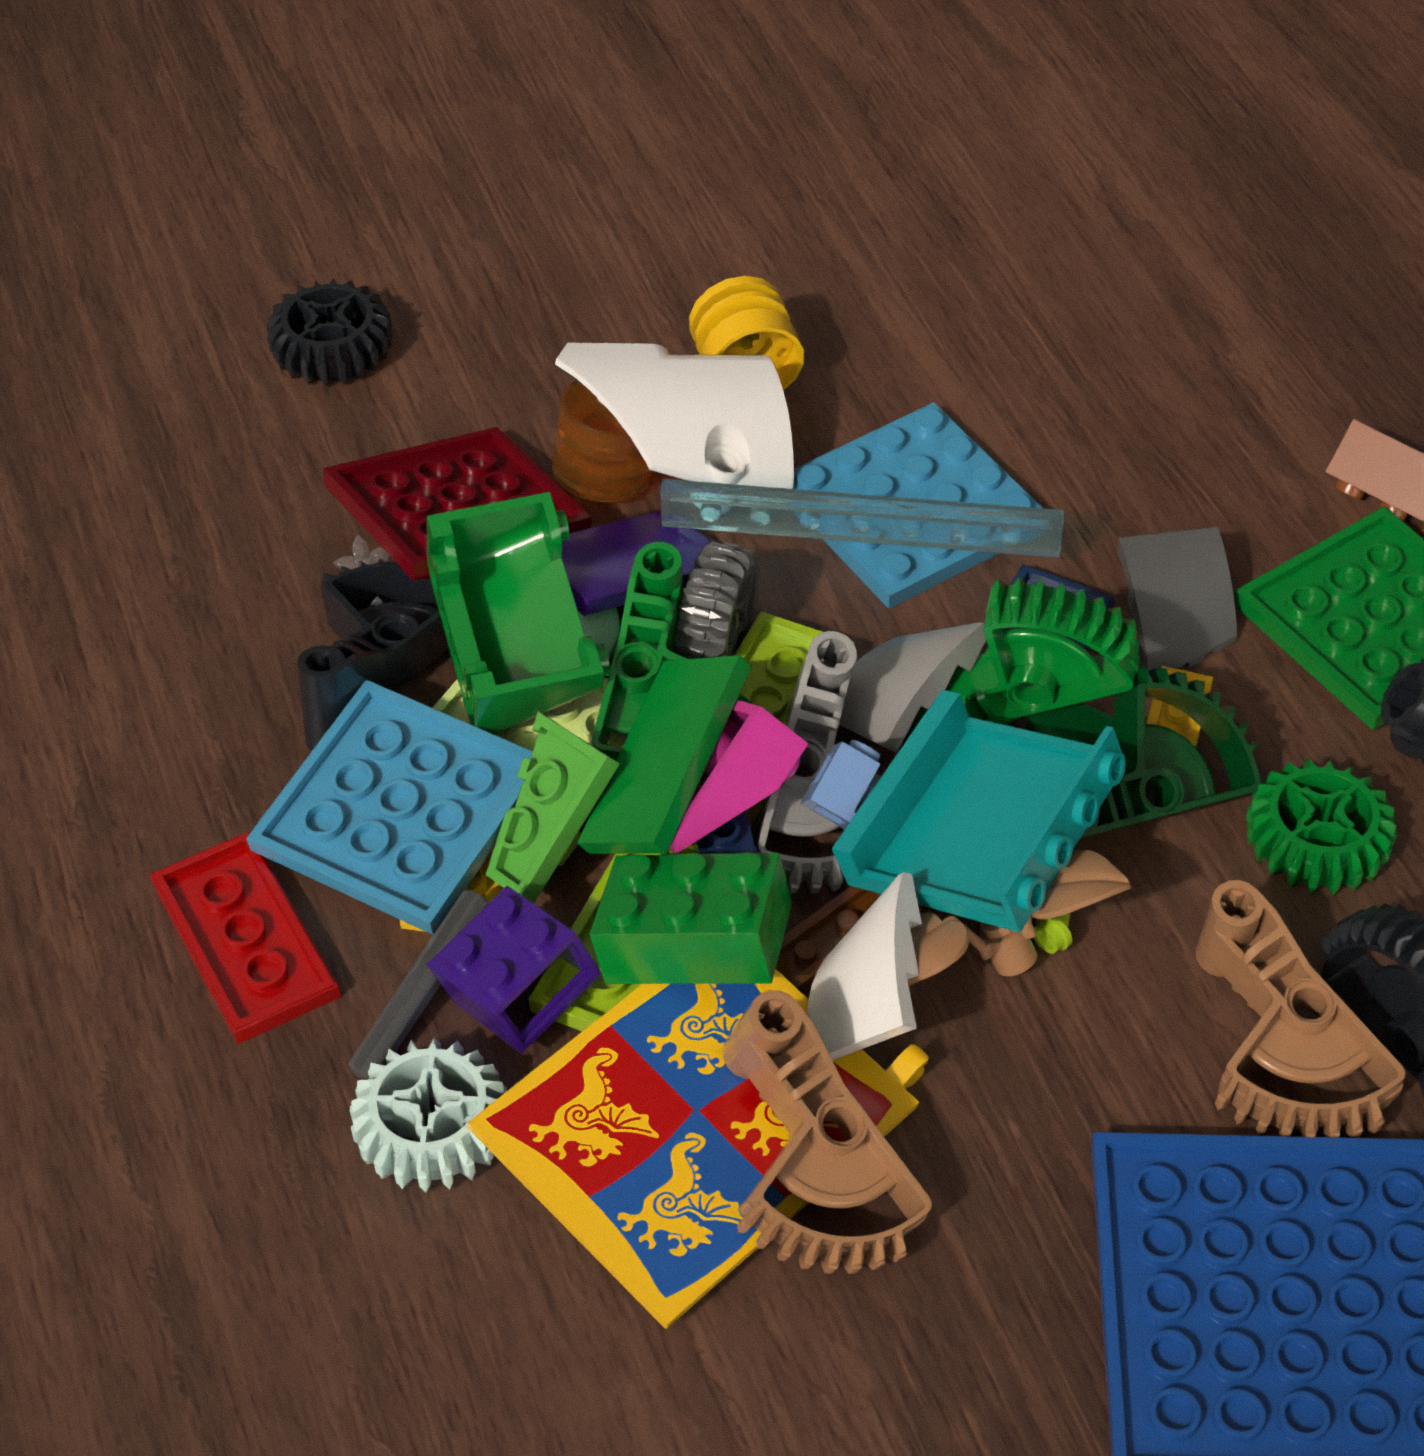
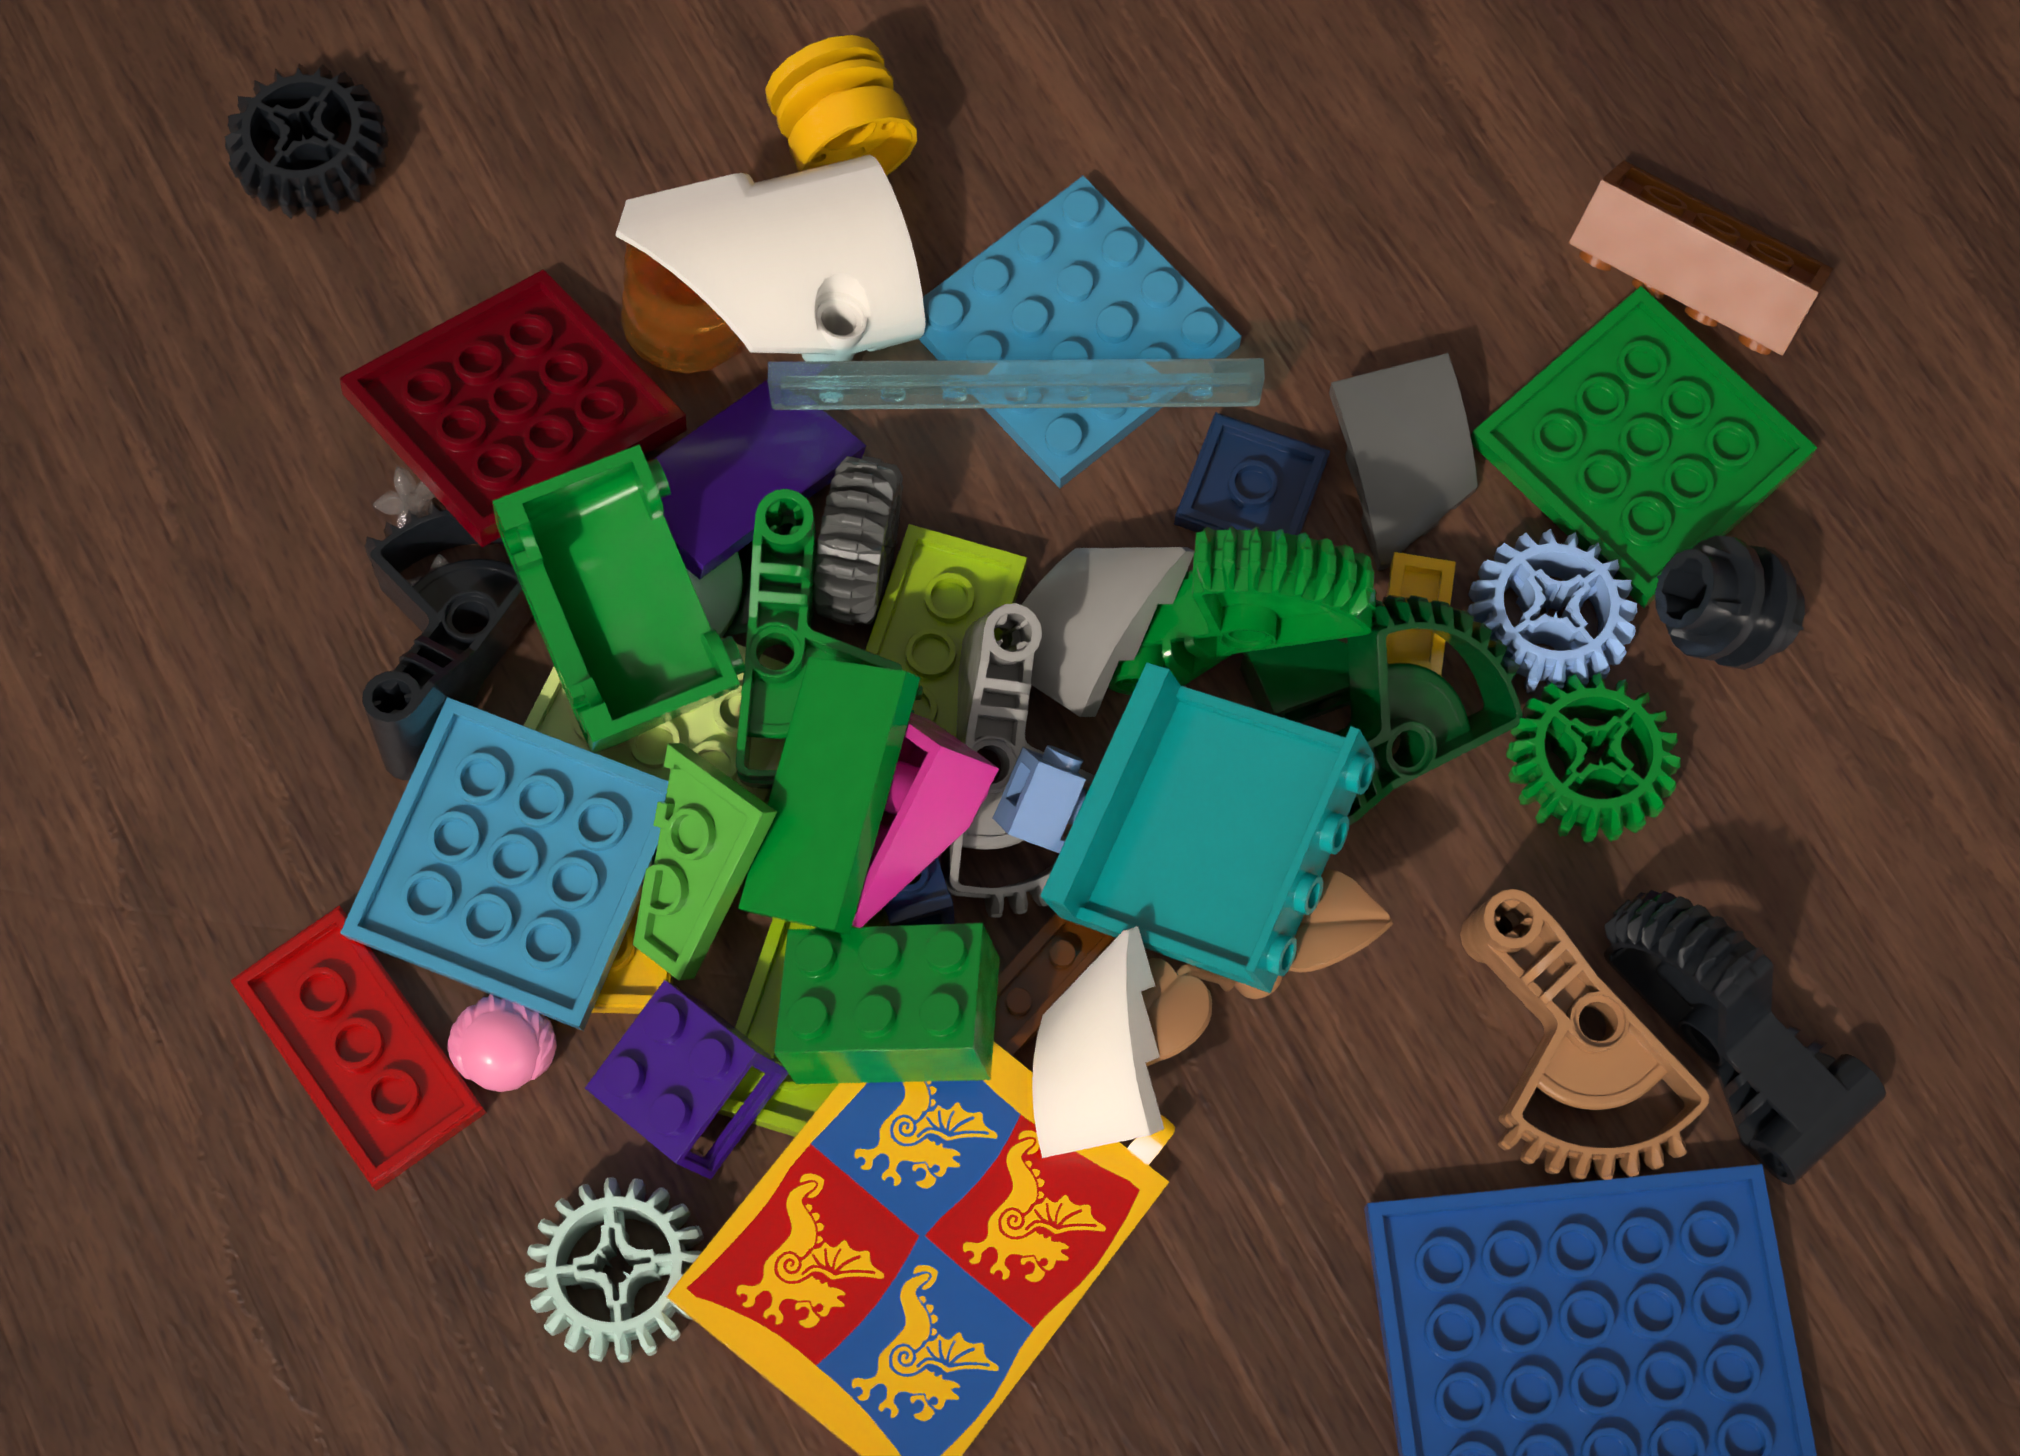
camera: 10 degrees left, 20 degrees up
(363, 940) = (501, 1044): none -> bright pink hair
(413, 991) = (575, 1103): dark grey axle -> none
(797, 1078) = (1054, 1299): medium nougat arm -> none
(1295, 707) = (1528, 573): none -> light blue gear

